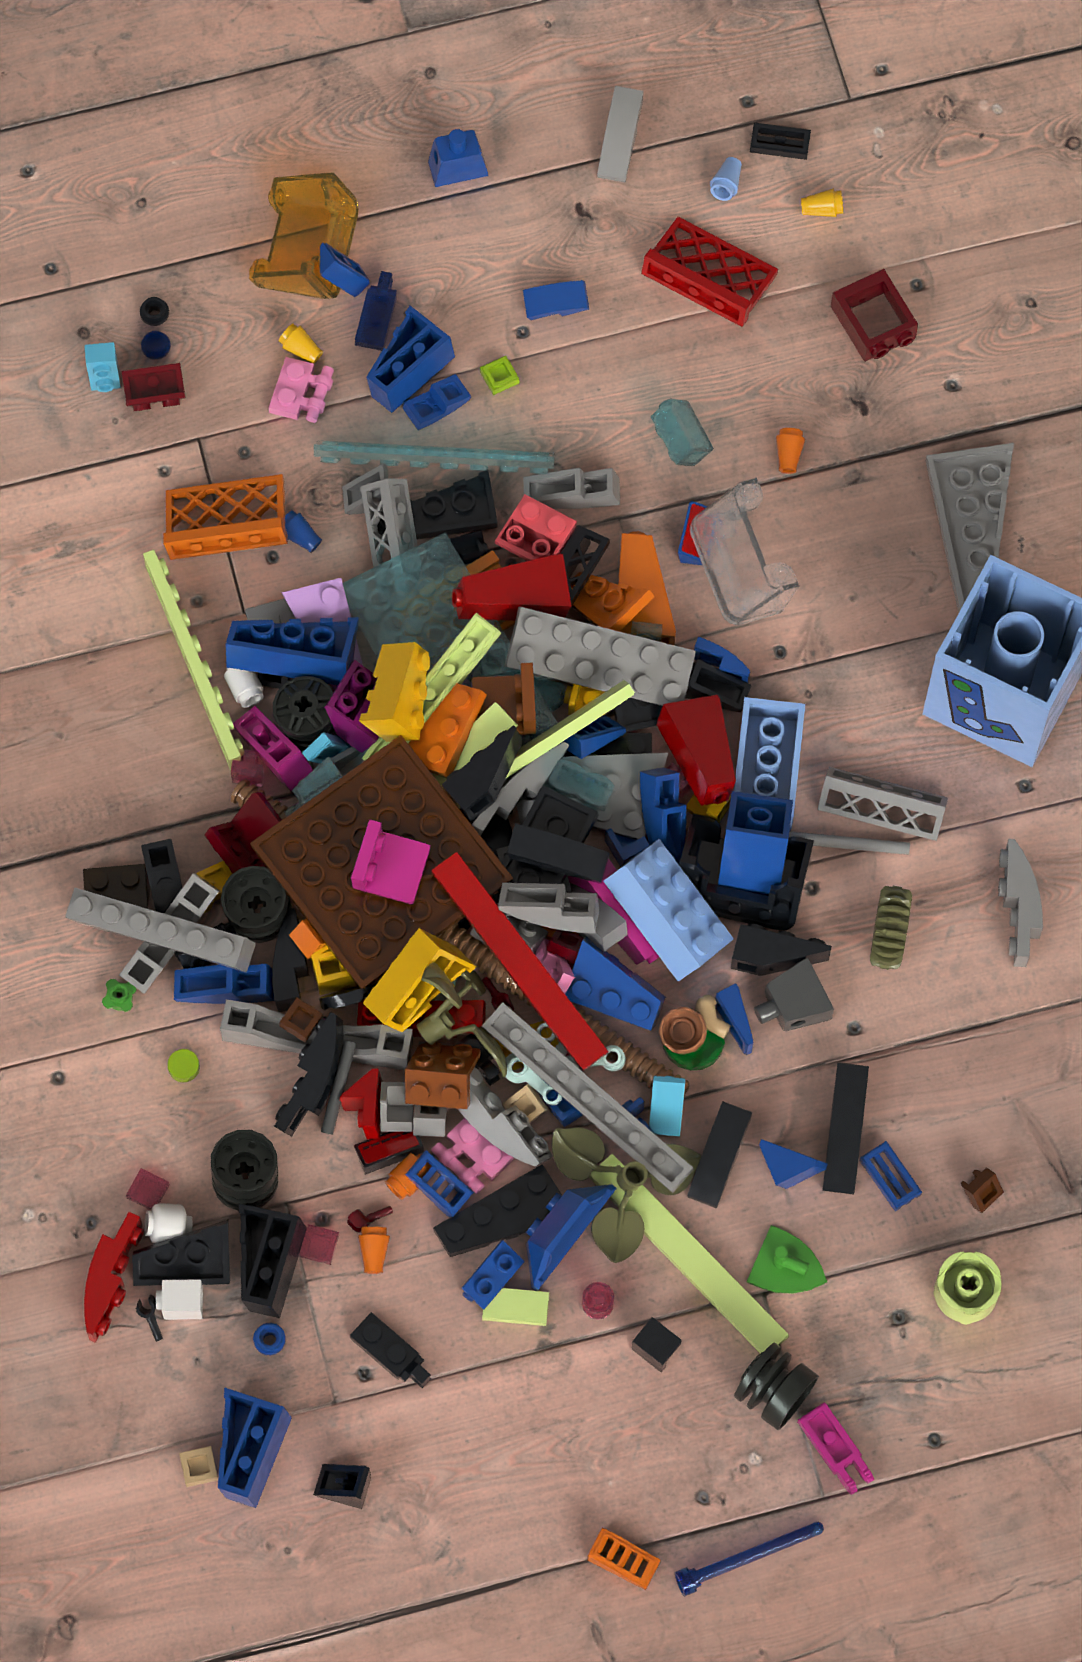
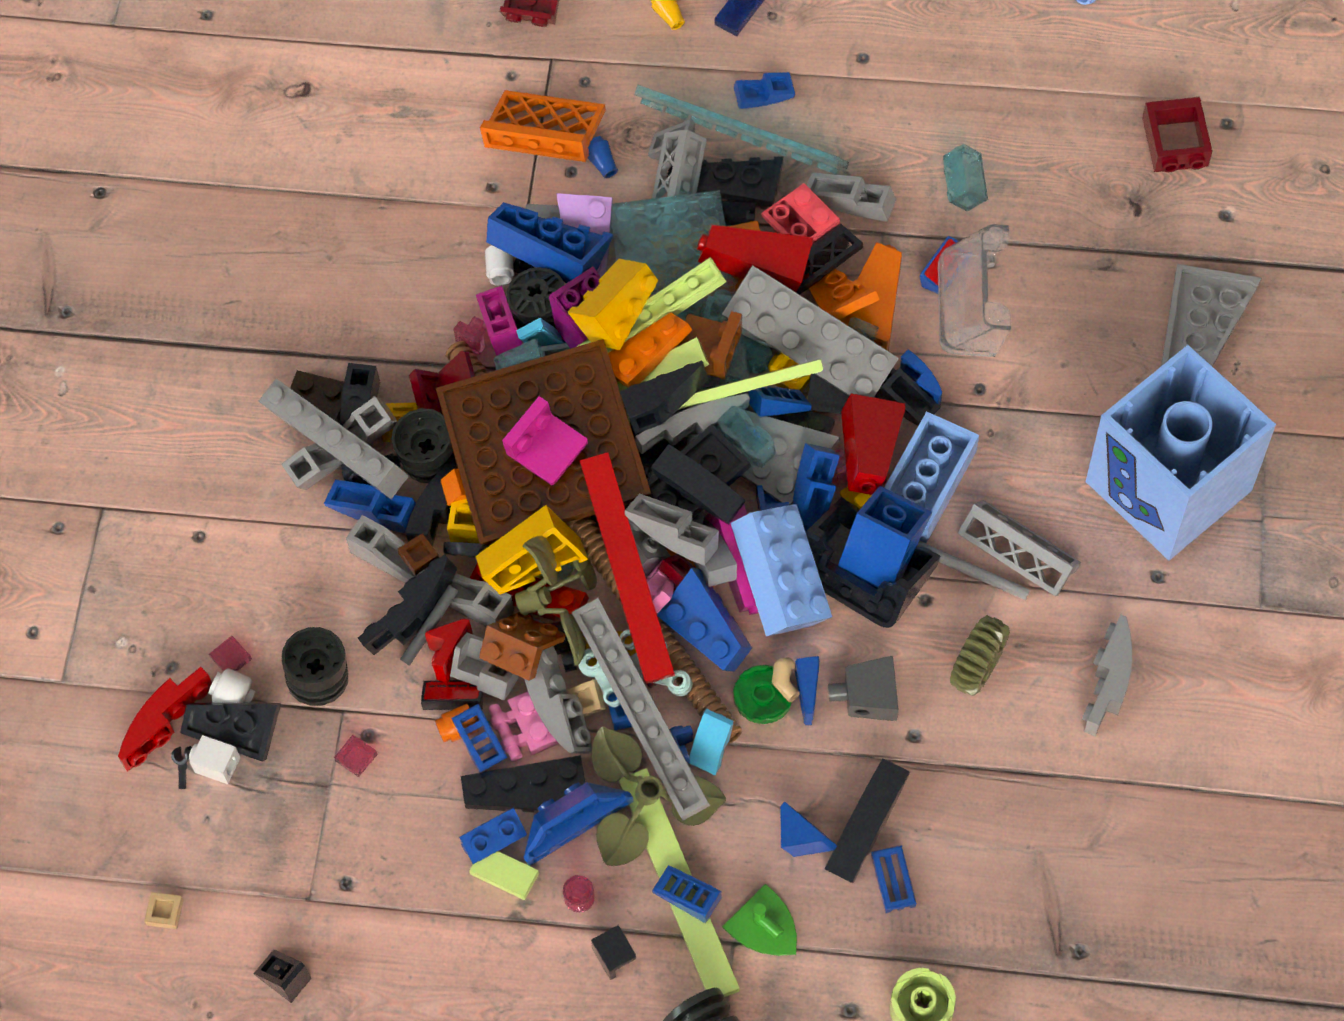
camera: 25 degrees right, 5 degrees down
(112, 1001) = (279, 492): bright green plate -> none
(183, 1065) = (308, 562): lime tile -> none
(190, 648) = (466, 220): yellowish green plate -> none
(249, 1445) = (213, 908): blue wedge -> none
(265, 1330) = (272, 814): blue plate -> none
(269, 1257) = (303, 750): black wedge -> none
(292, 388) = (647, 41): bright pink plate -> none
(358, 1219) = (399, 748): dark red hand -> none
(373, 1248) = (400, 775): orange cone -> none
(390, 1350) = (376, 870): black hinge -> none
(409, 361) = (752, 48): blue wedge -> none
(497, 997) = (606, 599): dark red hand -> none
(499, 375) = (827, 85): lime tile -> none
(556, 298) = (905, 38): blue slope -> none
(683, 1030) = (753, 681): nougat hair -> none
(698, 285) = (1030, 64): red fence -> none
(716, 1252) = (701, 913): none -> blue slope
(719, 1154) = (743, 802): black slope -> none
(769, 952) = (862, 641): black slope -> none
(789, 447) = (1057, 219): orange cone -> none
(825, 203) = (1168, 31): yellow cone -> none
(983, 1189) = (973, 921): reddish brown tile -> none

